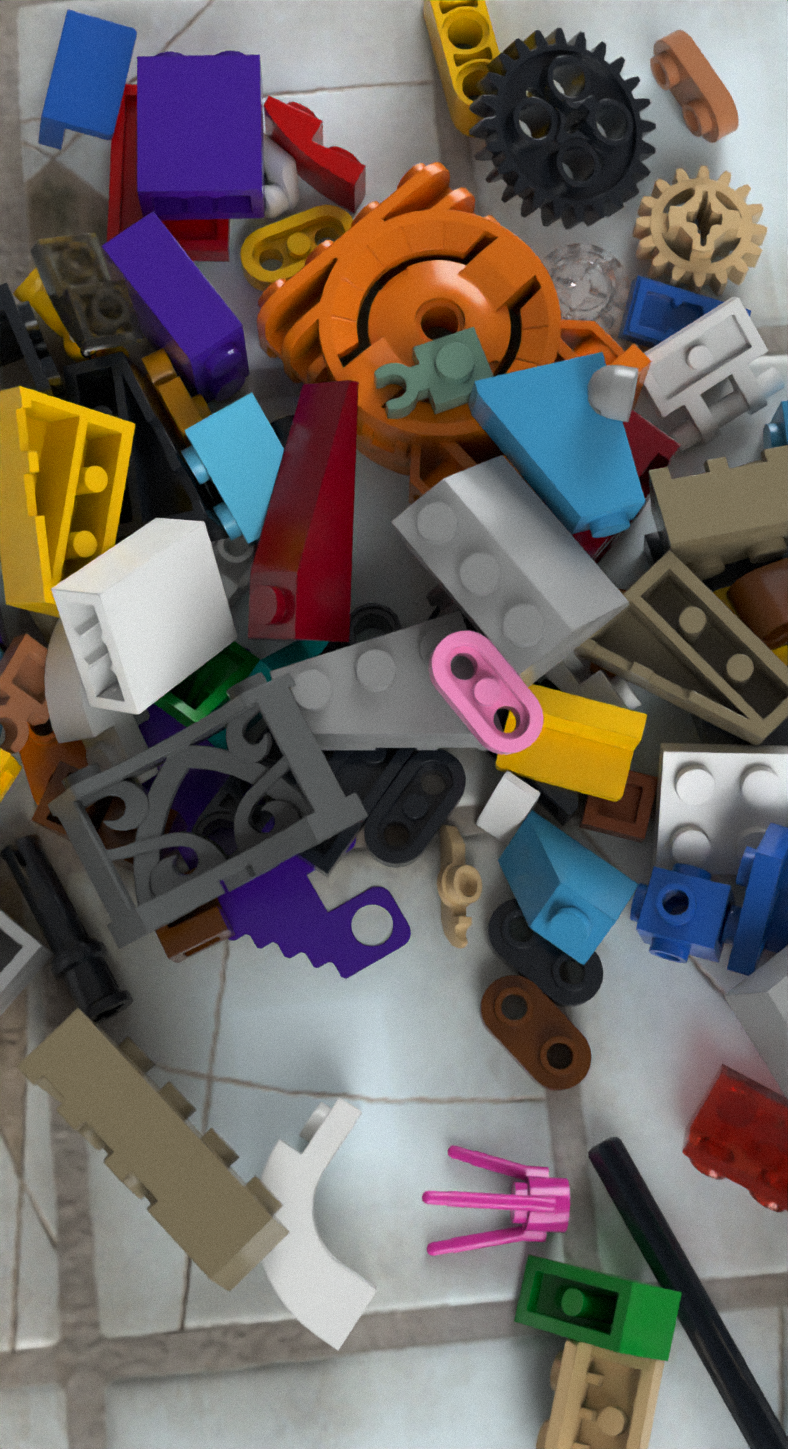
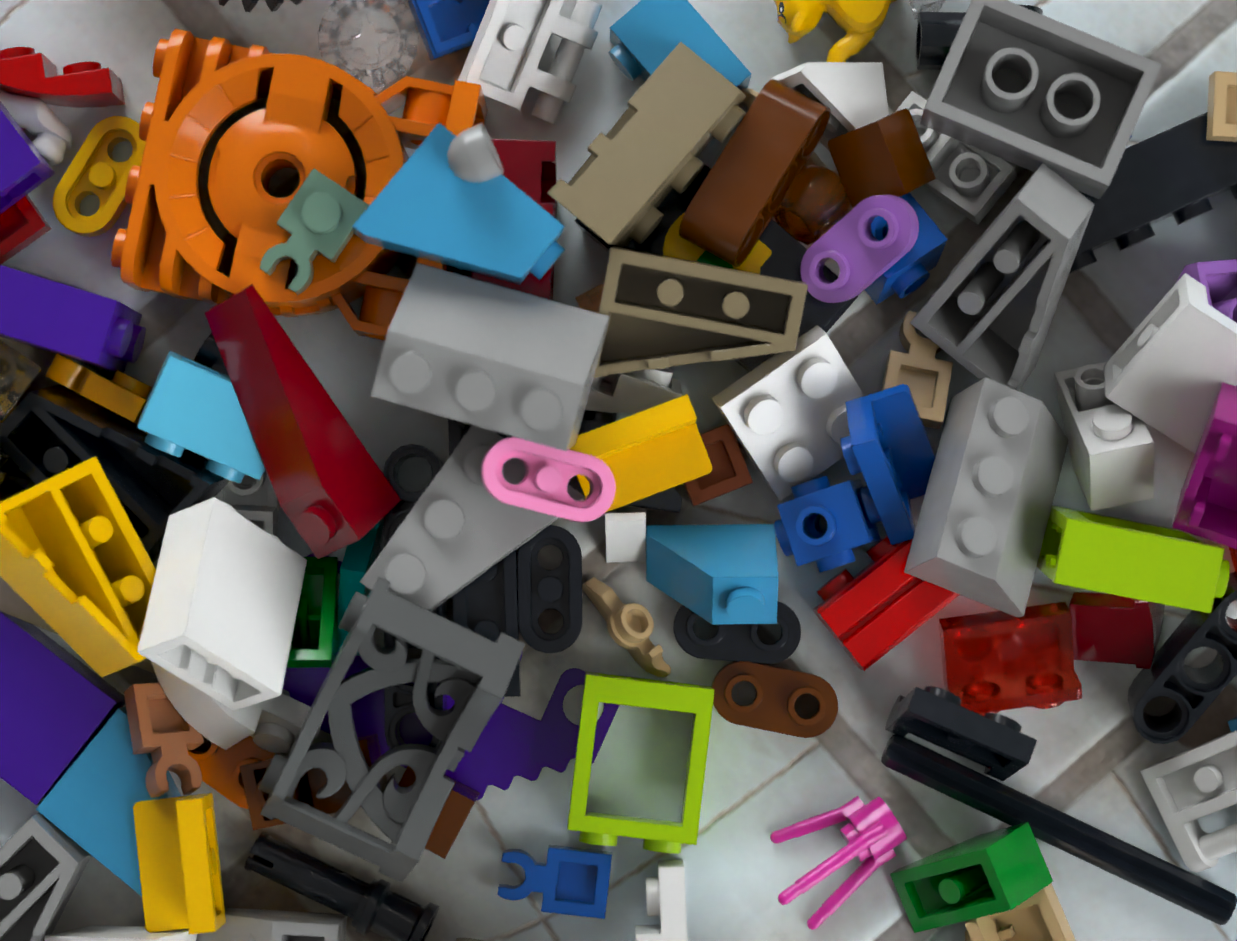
camera: 30 degrees left, 10 degrees up
(255, 1058) = (571, 880): none -> blue plate
(428, 945) = (646, 693): none -> lime window
(680, 1014) = (878, 604): none -> red brick
(689, 1186) = (941, 720): none -> black plate

